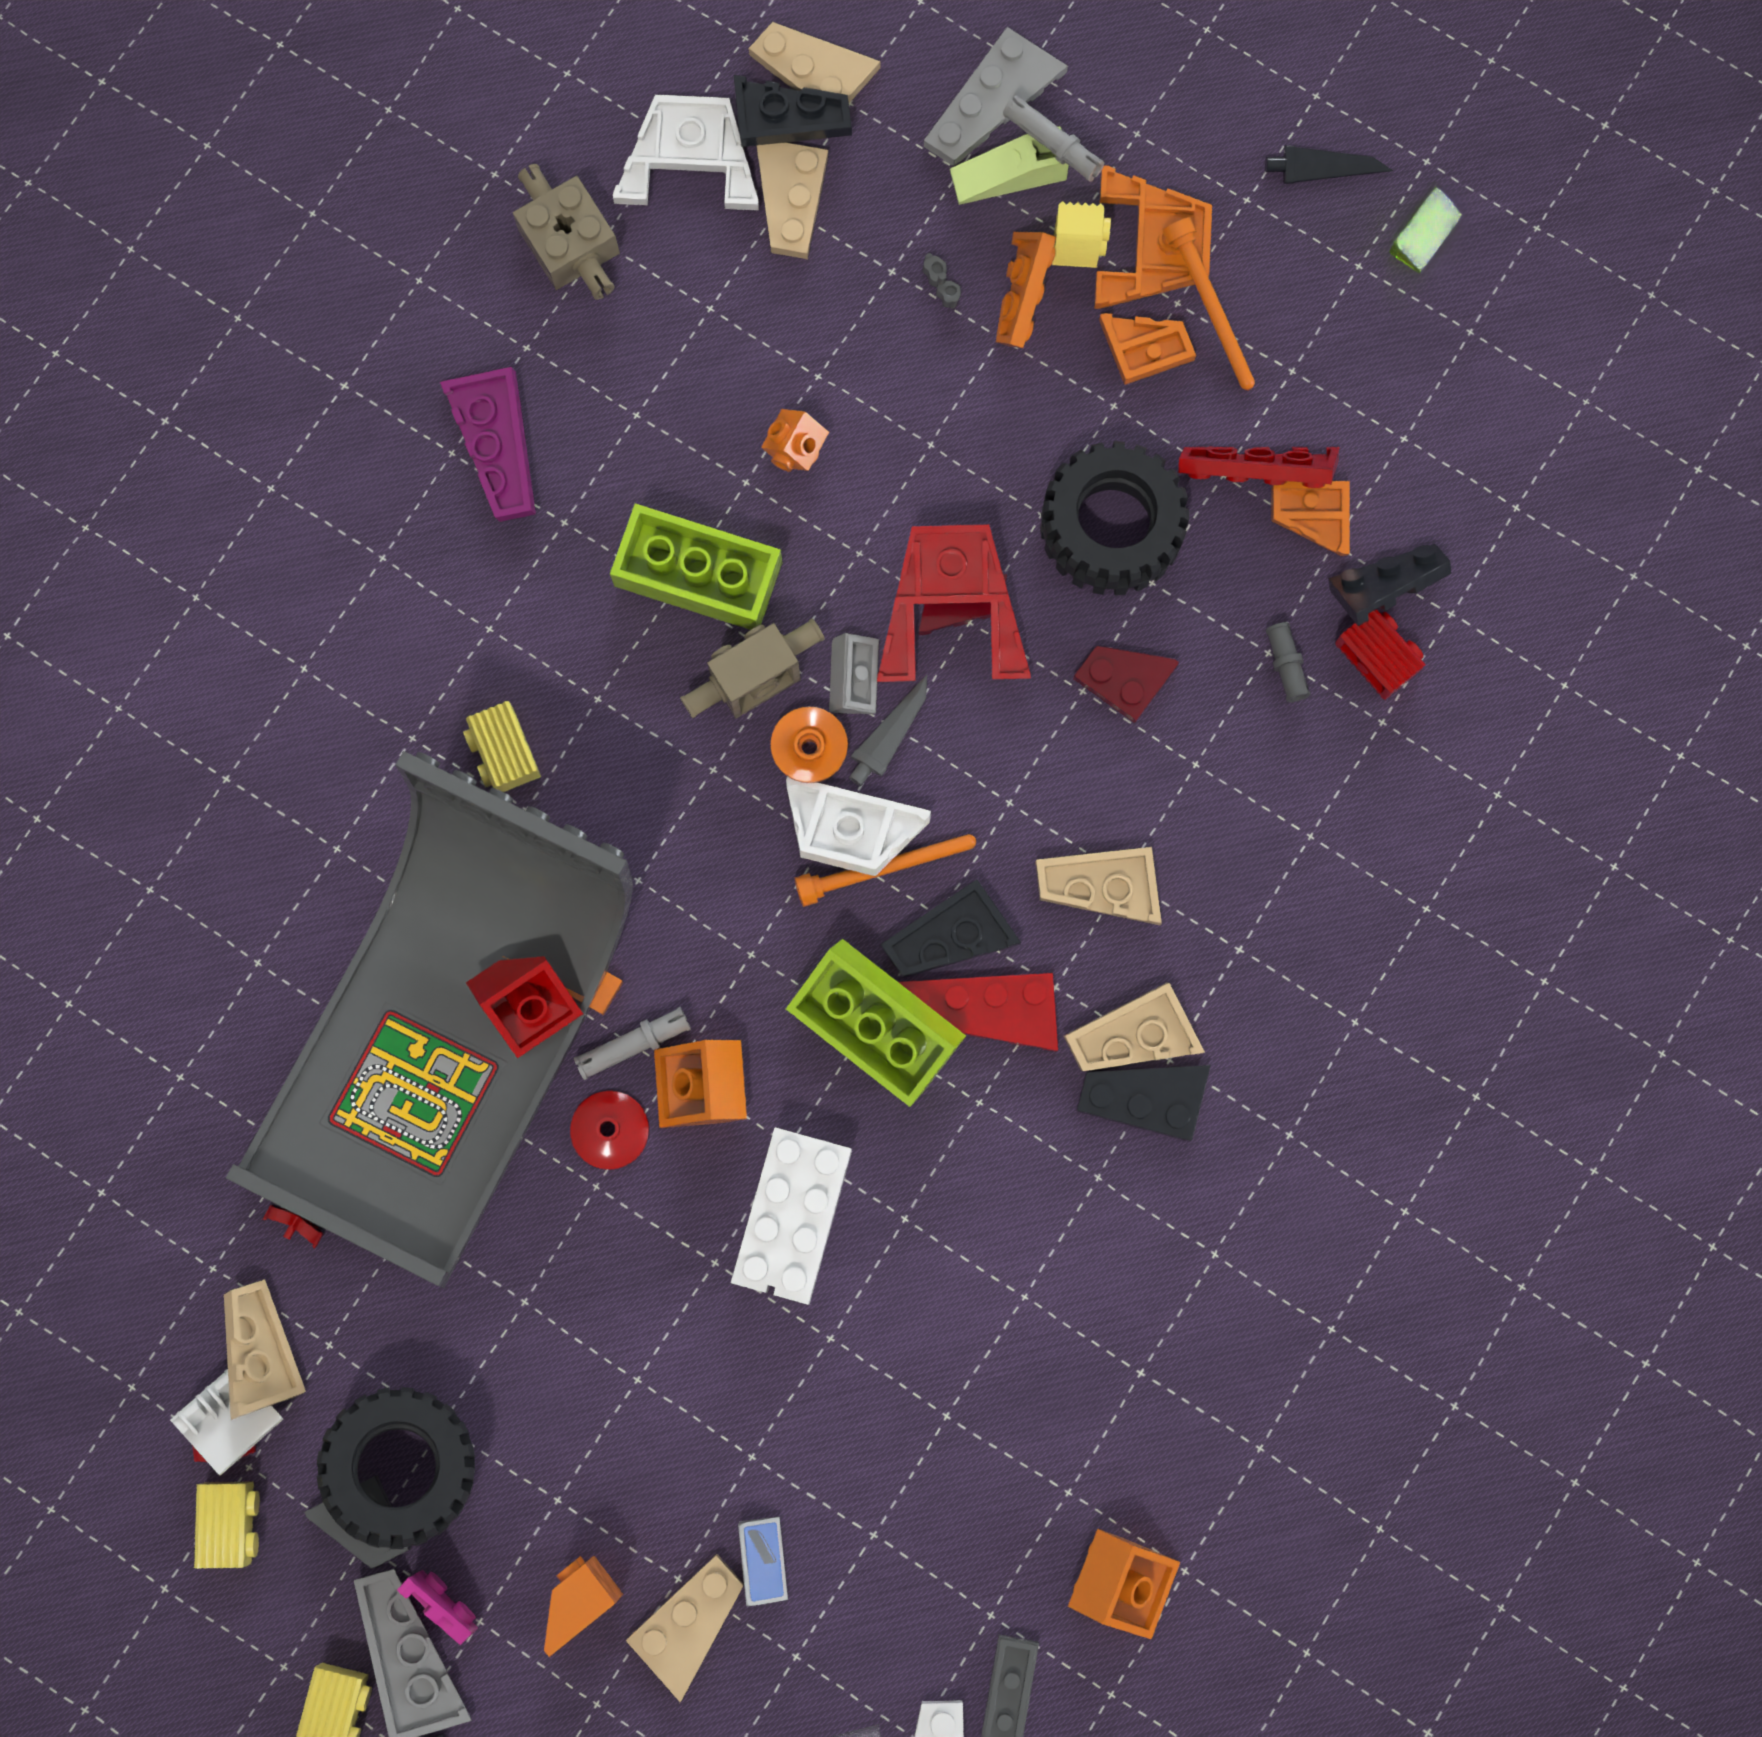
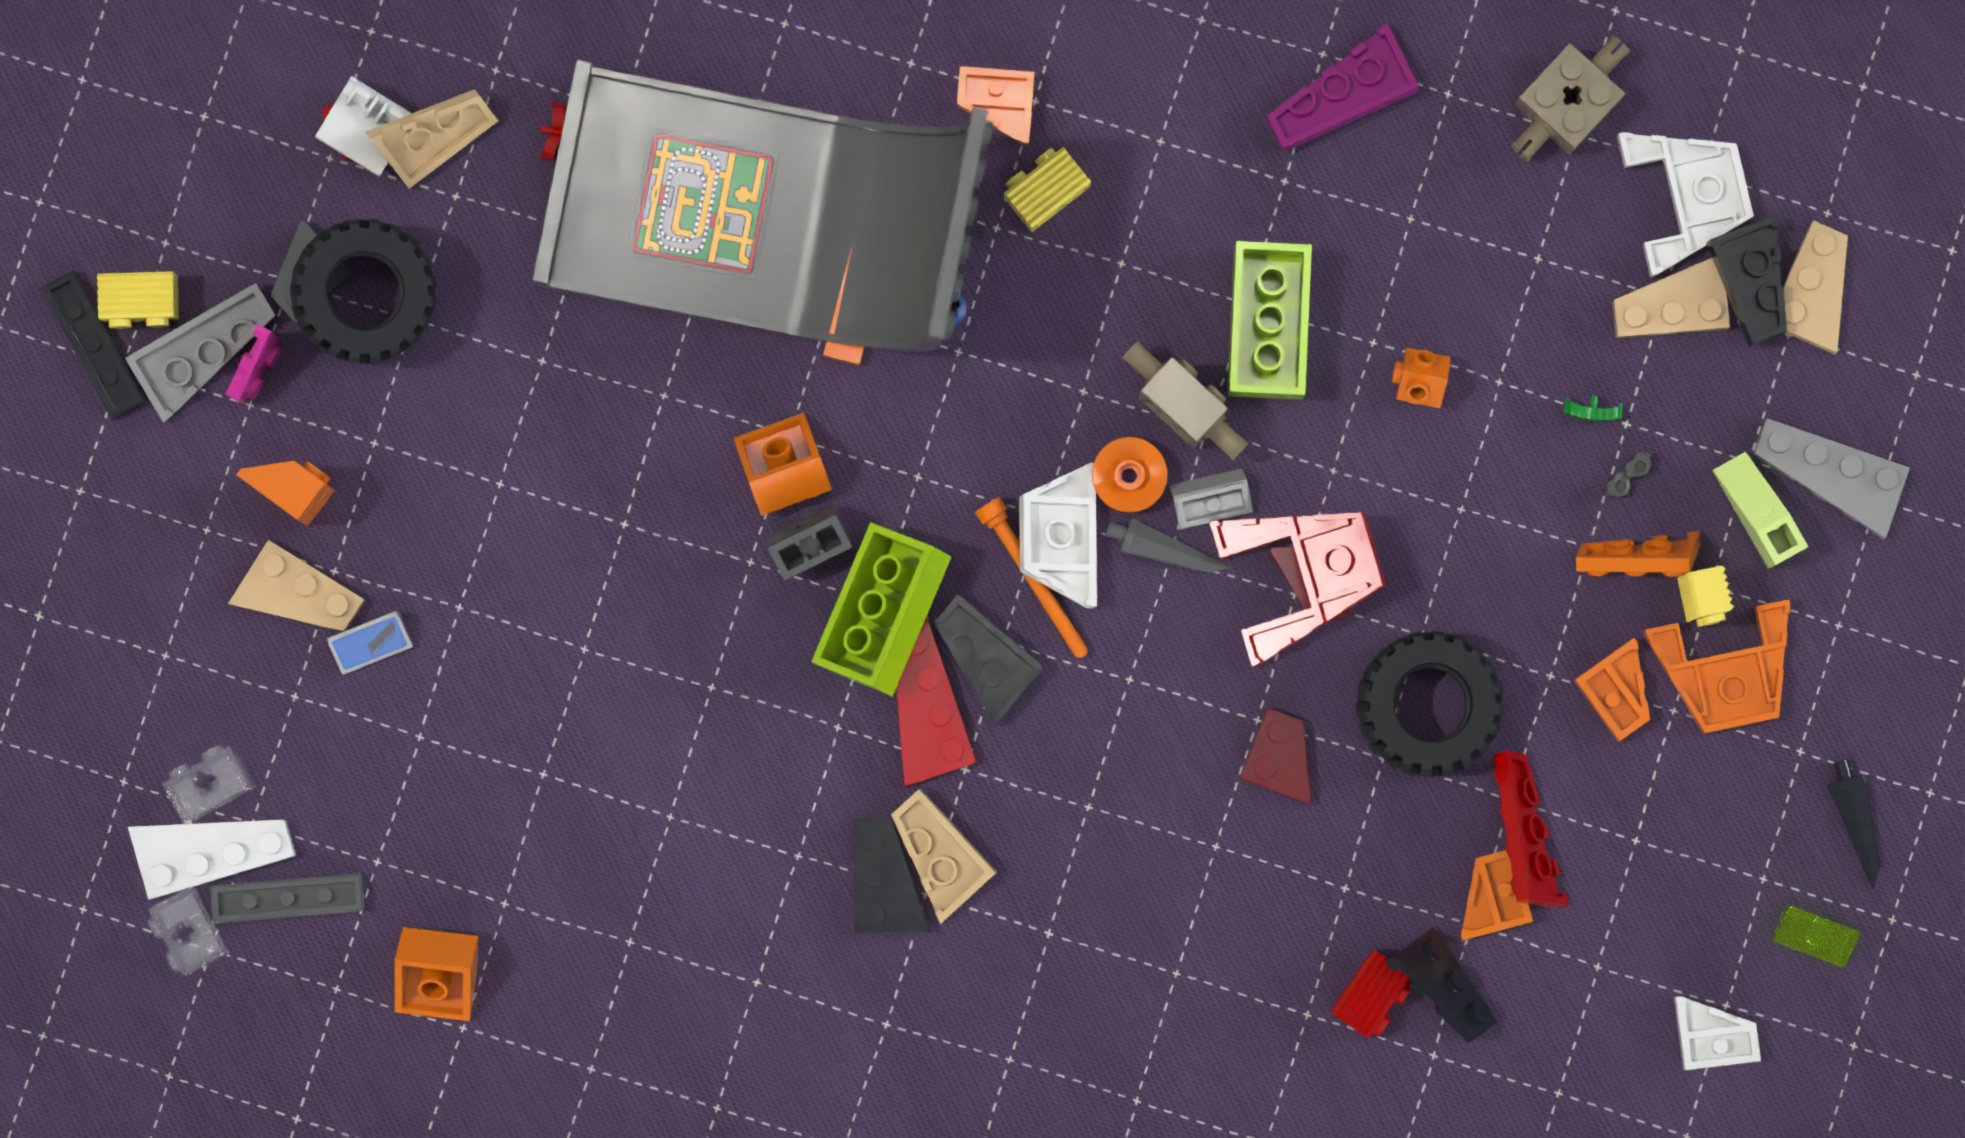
camera: 75 degrees right, 5 degrees up
(225, 1524) = (274, 154): light yellow brick -> none
(382, 782) = (1004, 95): none -> wing
(524, 1001) = (811, 279): red slope -> none
(629, 1135) = (719, 412): red dish -> none
(632, 1043) = (812, 401): light grey pin -> none
(787, 1077) = (808, 541): none -> dark grey brick
(791, 1215) = (684, 582): white piece -> none
(873, 296) = (1592, 412): none -> green piece
(1065, 147) = (1783, 557): light grey pin -> none
(1103, 882) = (1074, 787): tan wing -> none
(1182, 237) = (1731, 696): orange piece -> none
(1288, 662) = (1338, 908): dark grey pin -> none
(1500, 348) = (1713, 1037): none -> white wing

